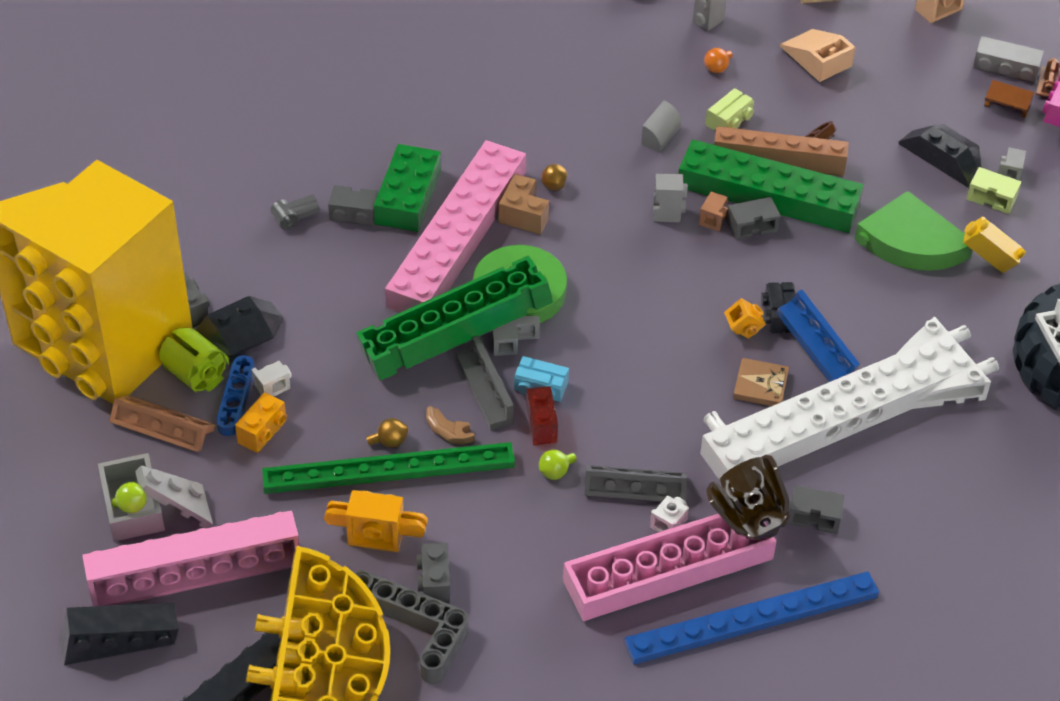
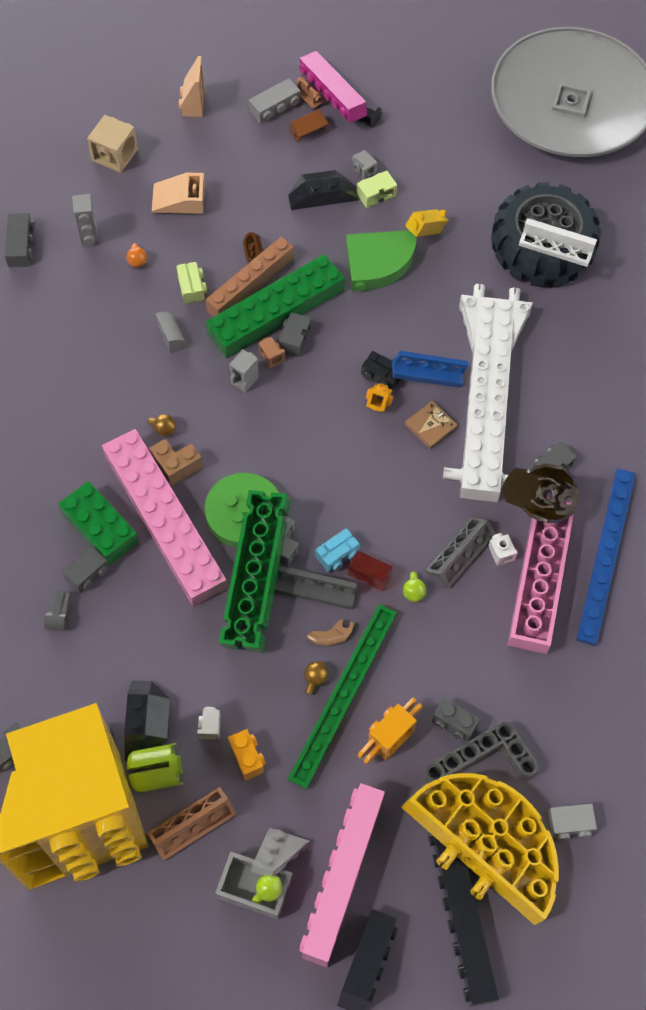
camera: 55 degrees left, 15 degrees up
(232, 394) = (205, 754): blue beam -> none

